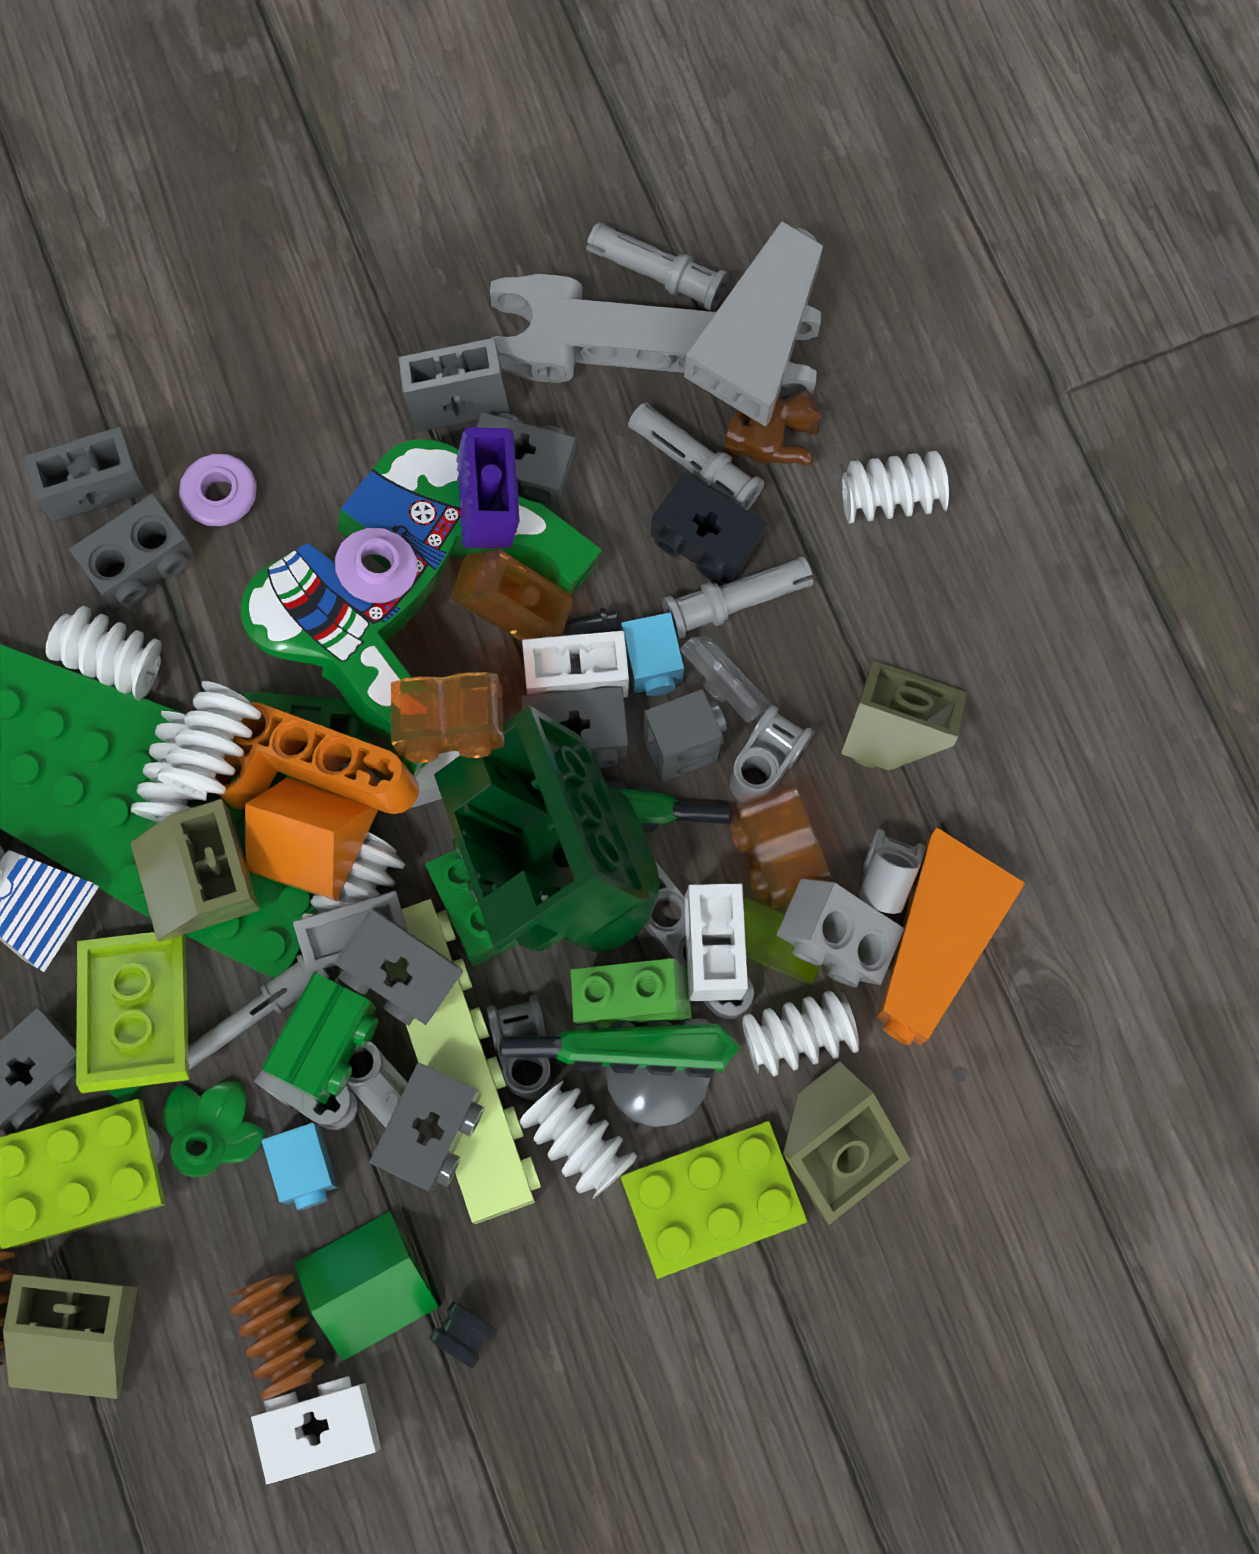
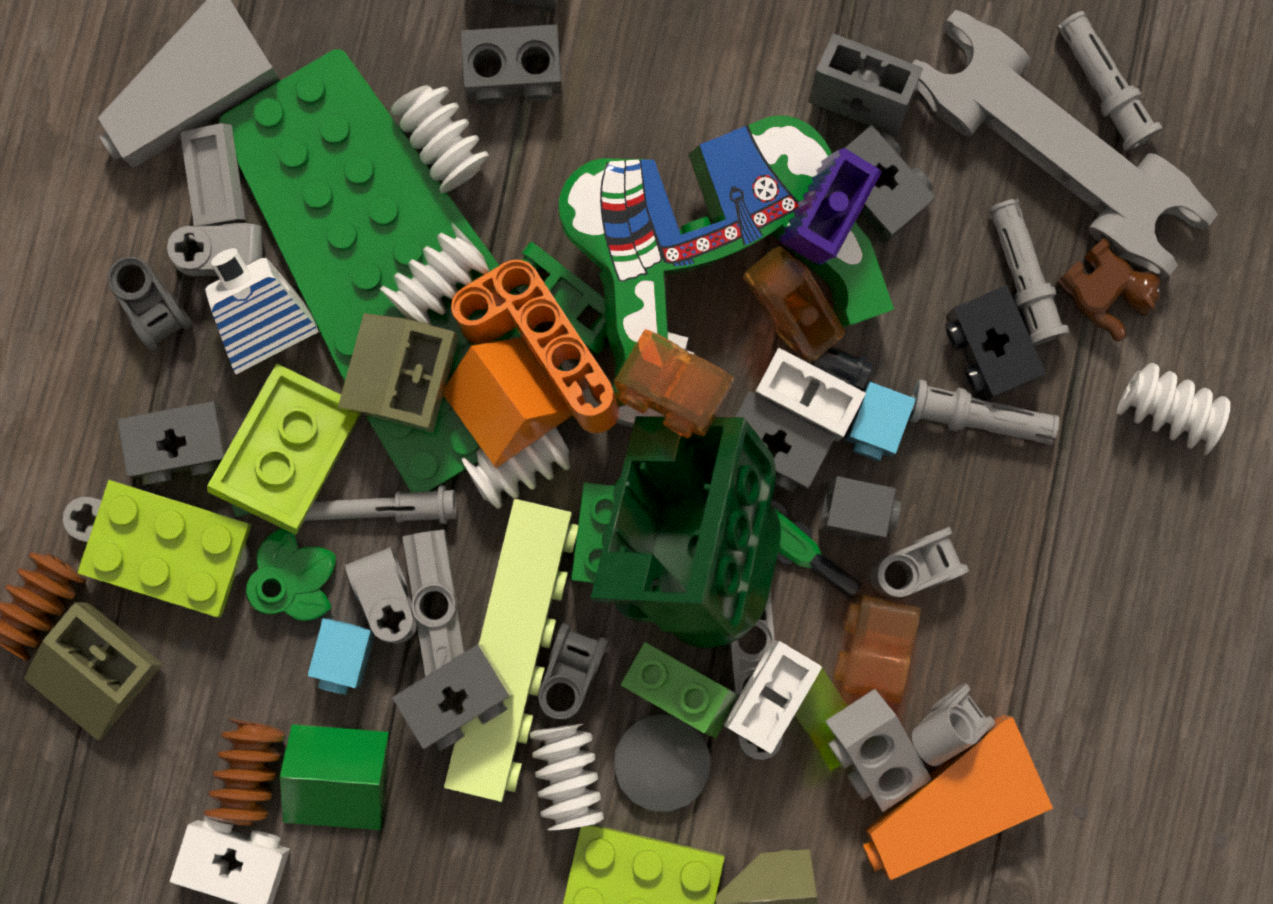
camera: 30 degrees right, 10 degrees up
(208, 741) = (474, 280): white piece -> none
(211, 470) = (608, 27): lavender piece -> none
(321, 1038) = (415, 573): green brick -> none
(328, 932) = (492, 501): light grey tile -> none
(376, 586) = (681, 231): lavender piece -> none
(429, 971) = (511, 529): dark grey brick -> none
(463, 1334) = (384, 864): black wheel -> none
(659, 1047) = (676, 745): green sword -> none
(725, 679) = (925, 480): clear plate -> none
(755, 329) = (1146, 203): light grey slope -> none
(800, 1032) = (794, 806): white piece -> none
(902, 718) = (1049, 606): olive slope -> none

